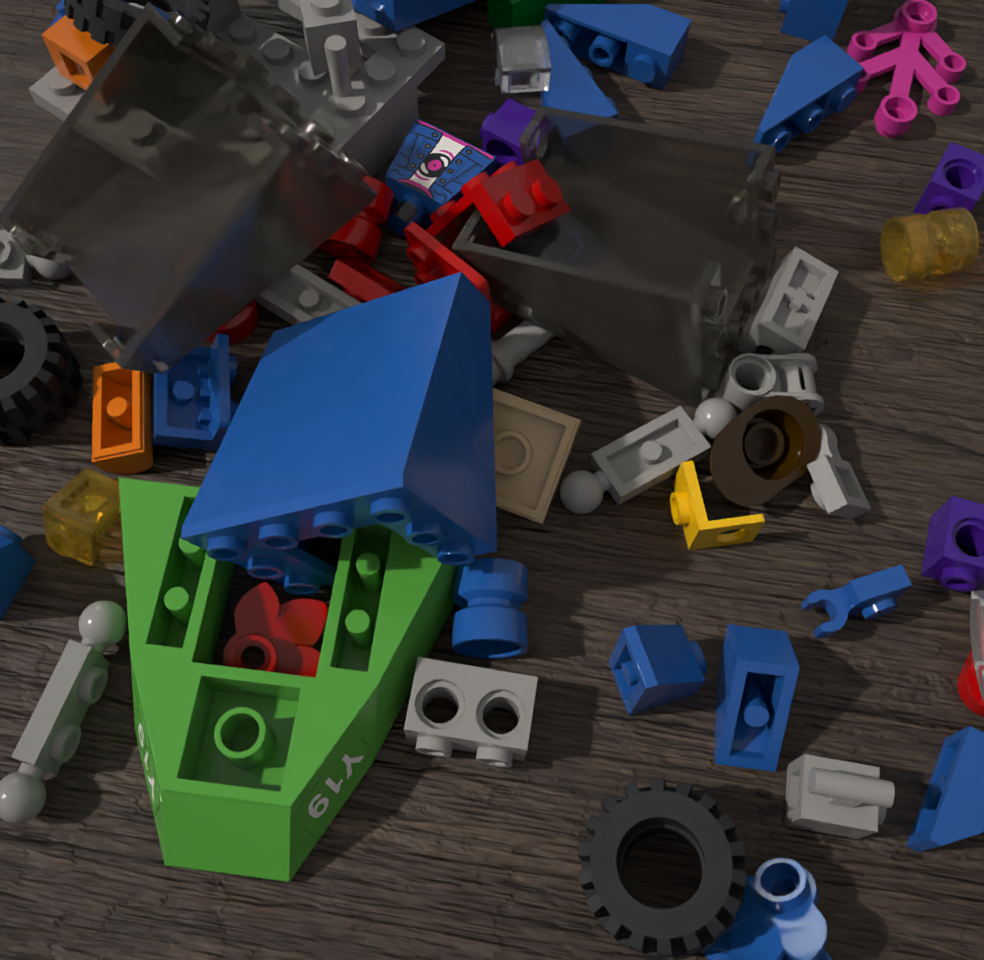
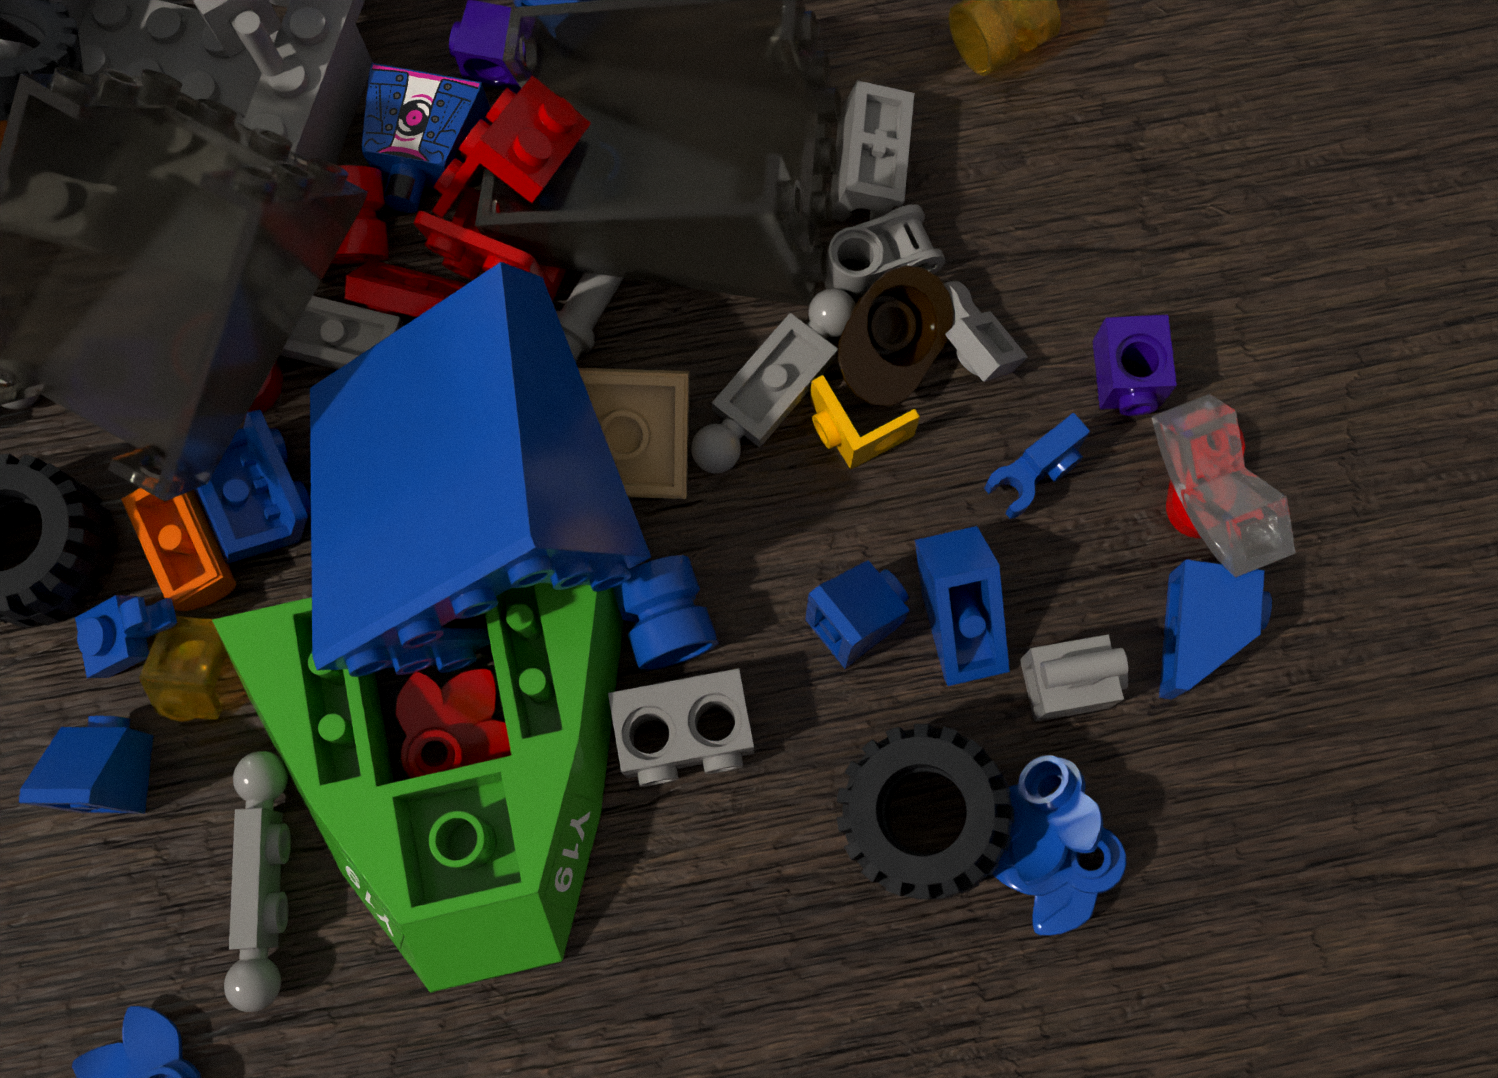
camera: 15 degrees left, 10 degrees up
(43, 465) = (116, 633): none -> blue plate

